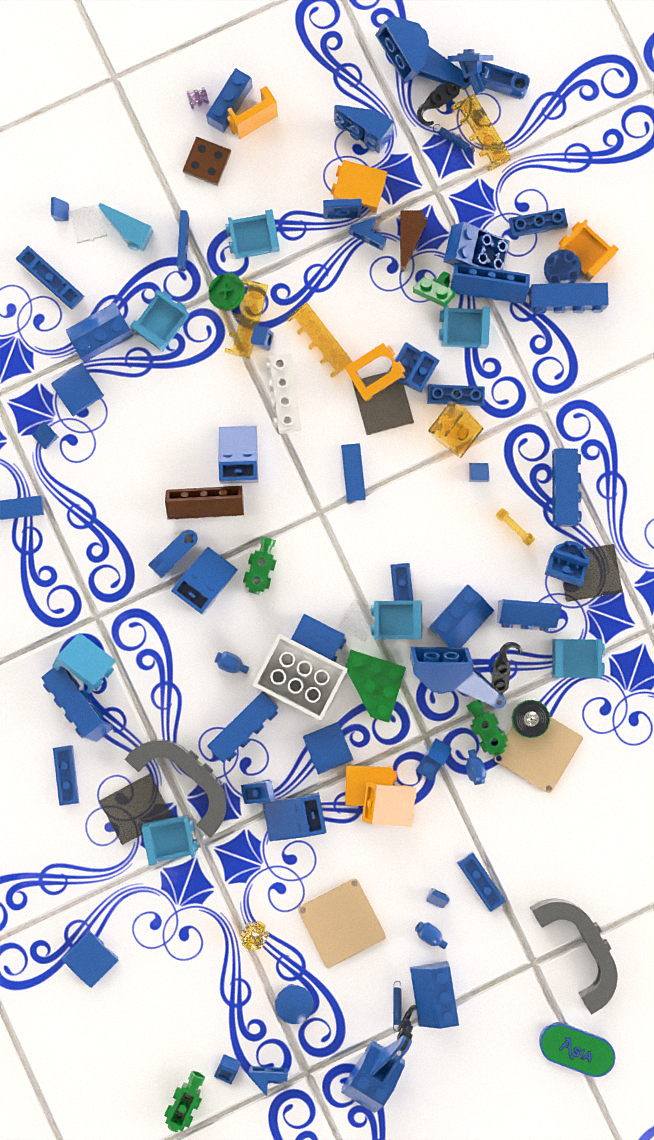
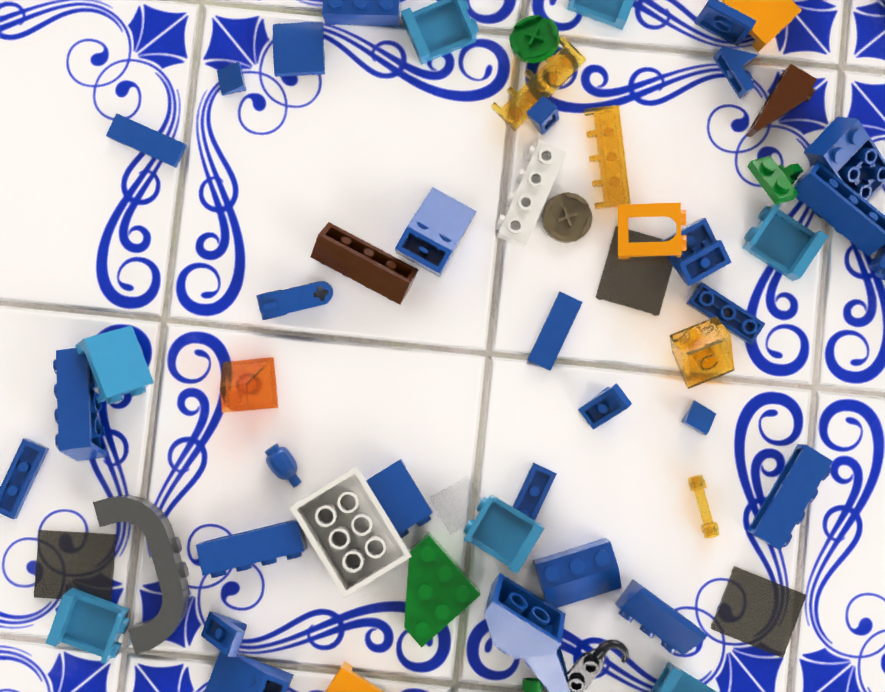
camera: 30 degrees right, 0 degrees up
(178, 625) = (248, 385): none -> clear orange slope
(204, 580) = (309, 352): blue slope -> none
(260, 571) = (381, 381): green brick -> none
(317, 394) = (566, 217): none -> dark tan tile
(328, 748) = (334, 630): blue slope -> none
(414, 501) = (605, 406): none -> blue slope
(568, 563) = (741, 587): blue slope -> none

